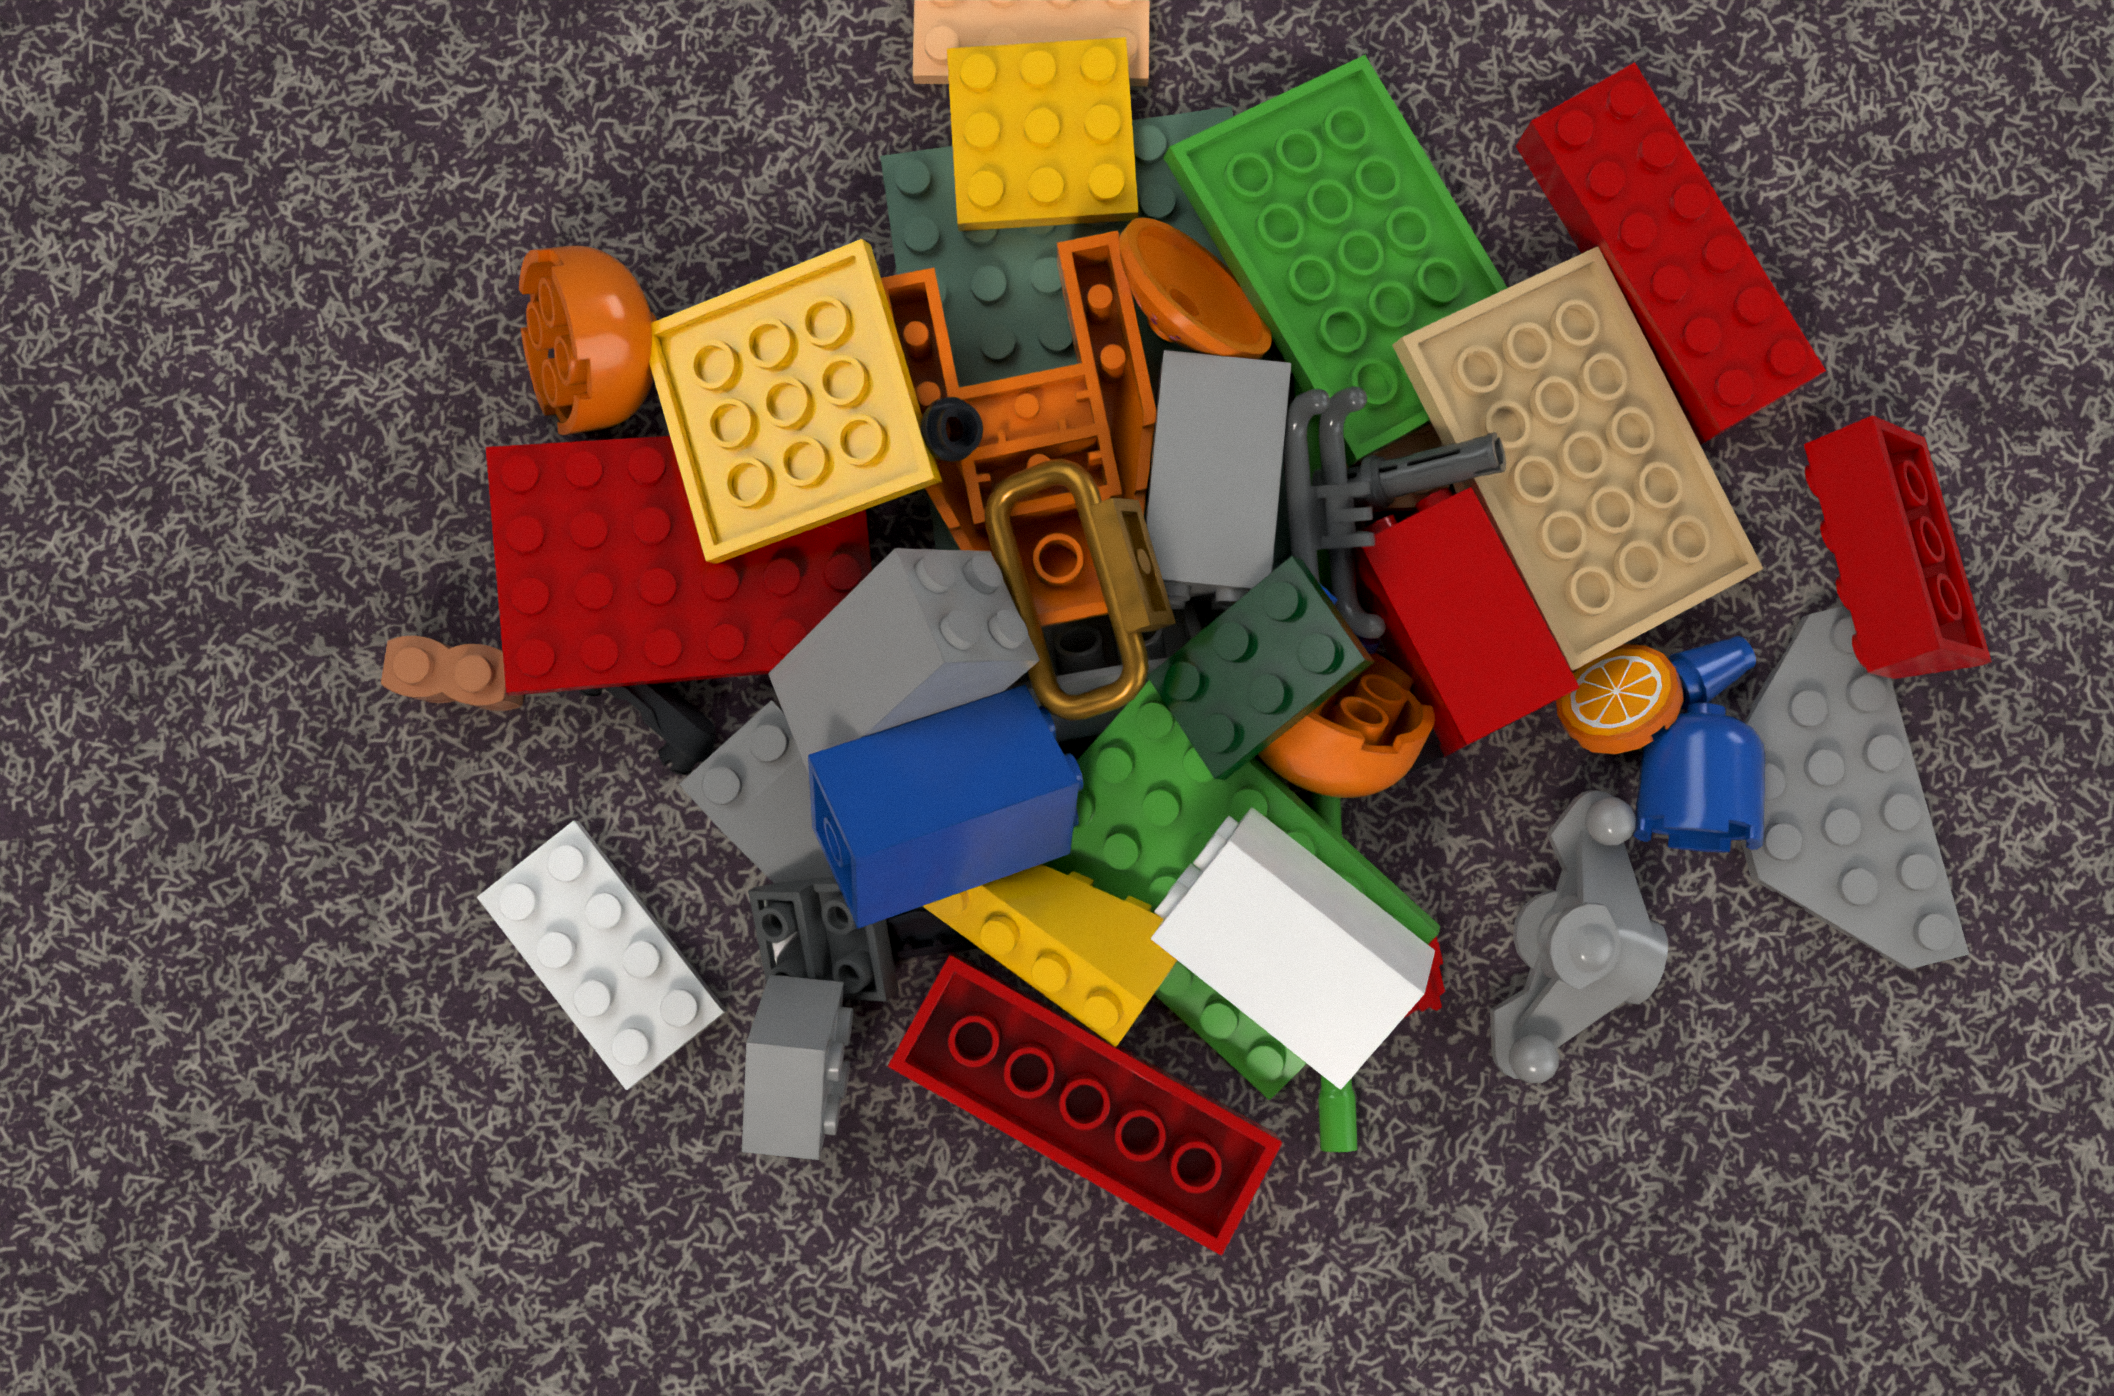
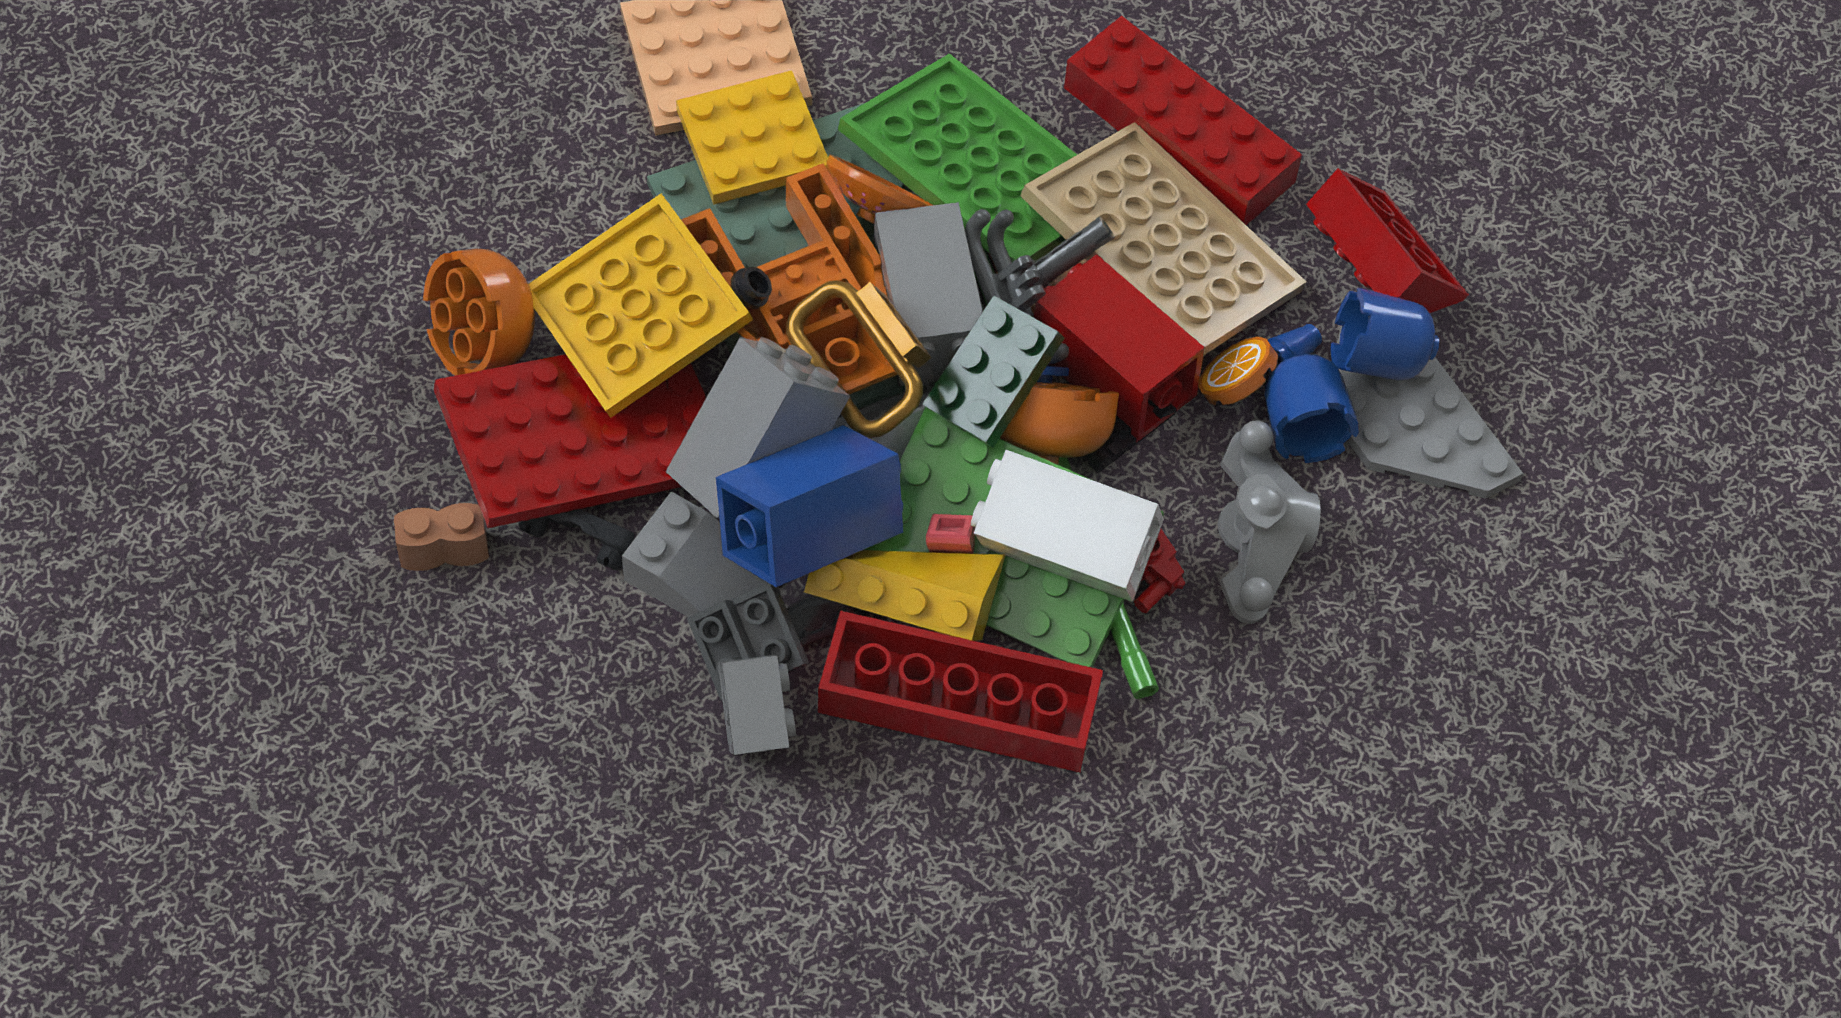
camera: 20 degrees left, 25 degrees down
(601, 954) = (591, 695): white plate -> none
(1136, 873) = (950, 534): none -> coral slope
(1844, 720) = (1383, 336): none -> blue cylinder

